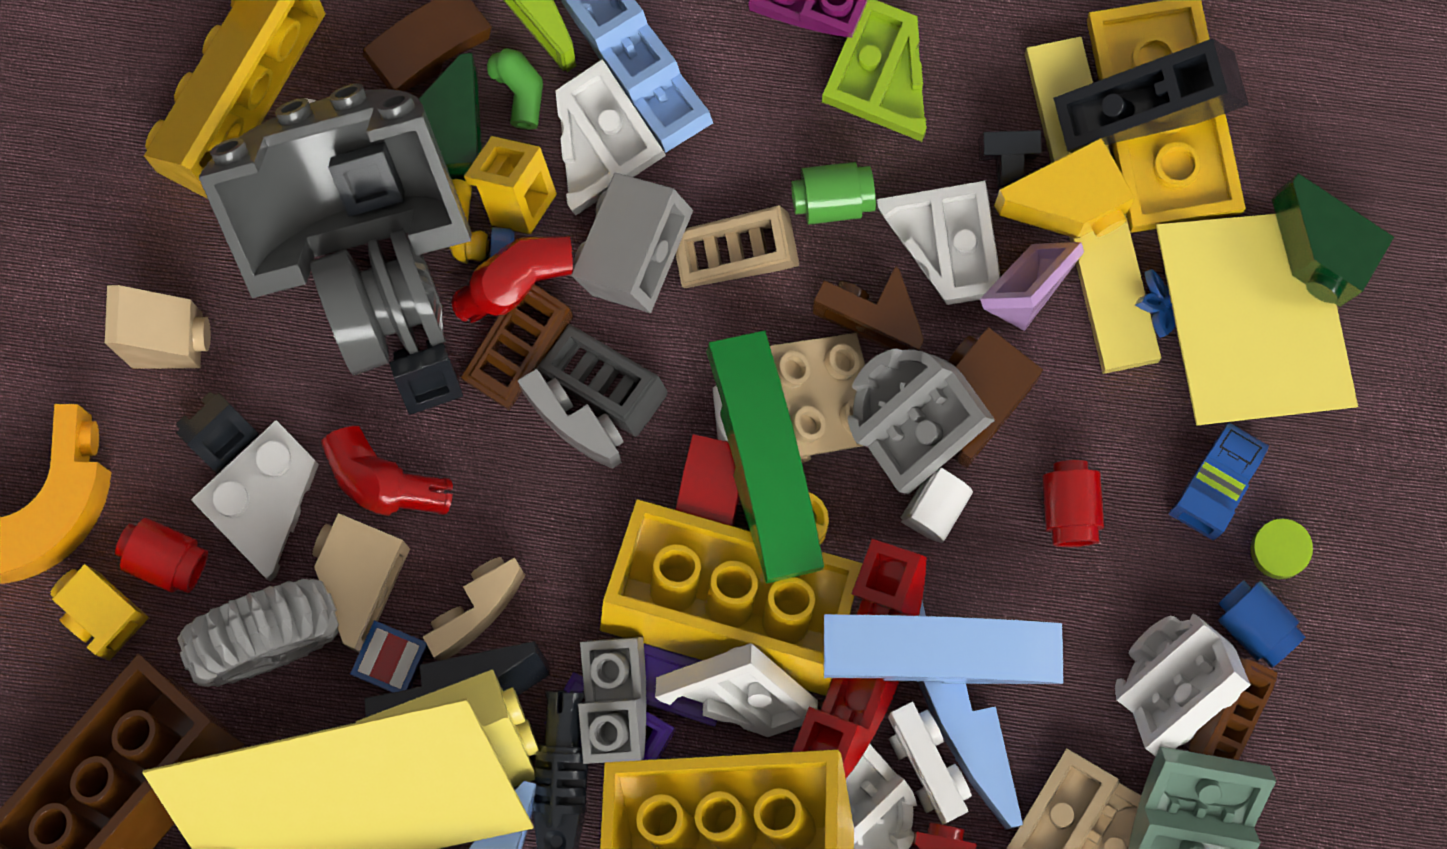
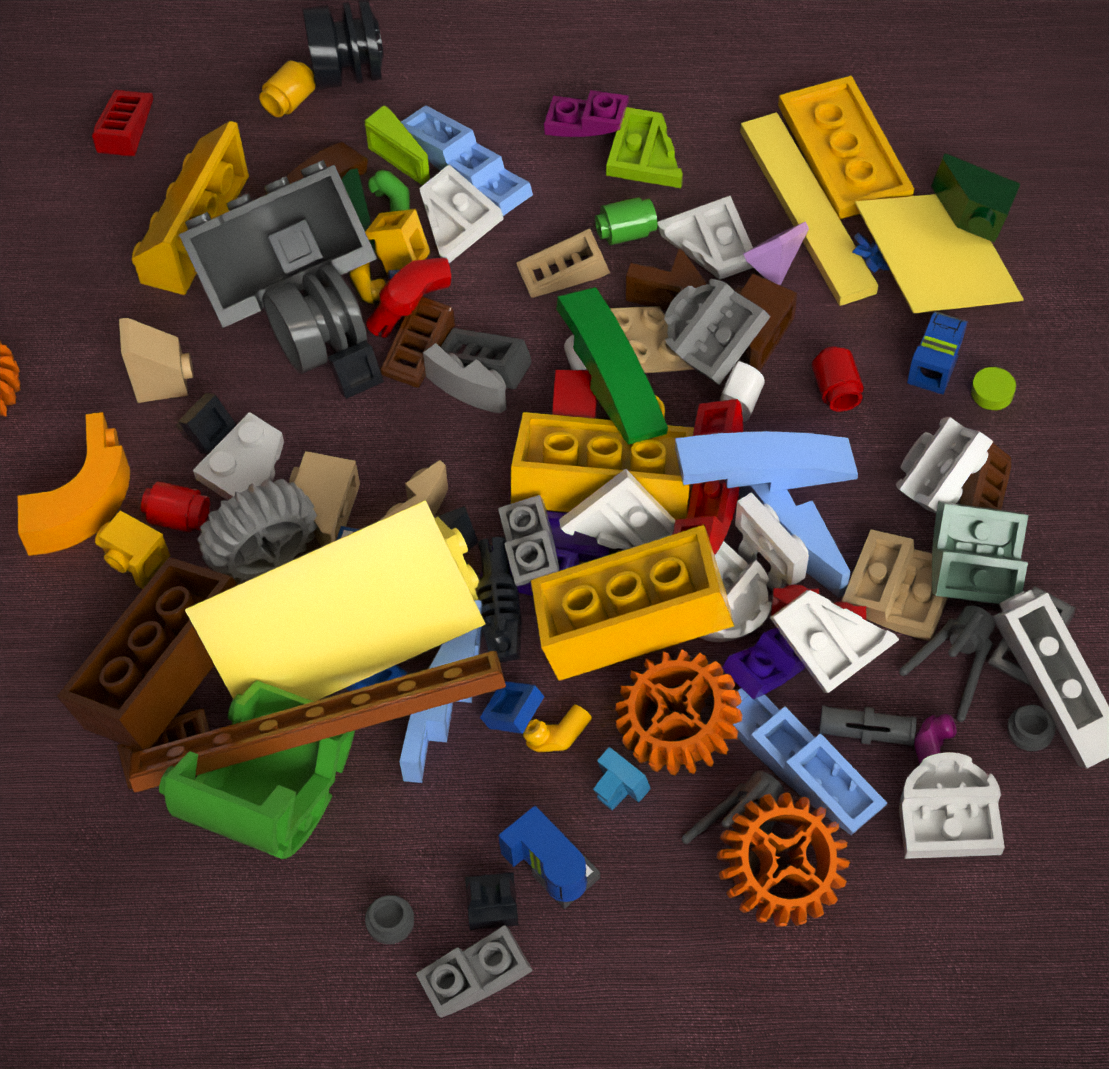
camera: 10 degrees left, 20 degrees down
(379, 482) = (333, 433): red arm -> none
(631, 242) = (489, 266): light grey brick -> none
(1009, 151) = (743, 180): black tile -> none
(1071, 195) = (790, 192): yellow slope -> none
(1153, 97) = (836, 126): black slope -> none
(1260, 622) = (994, 424): blue brick -> none

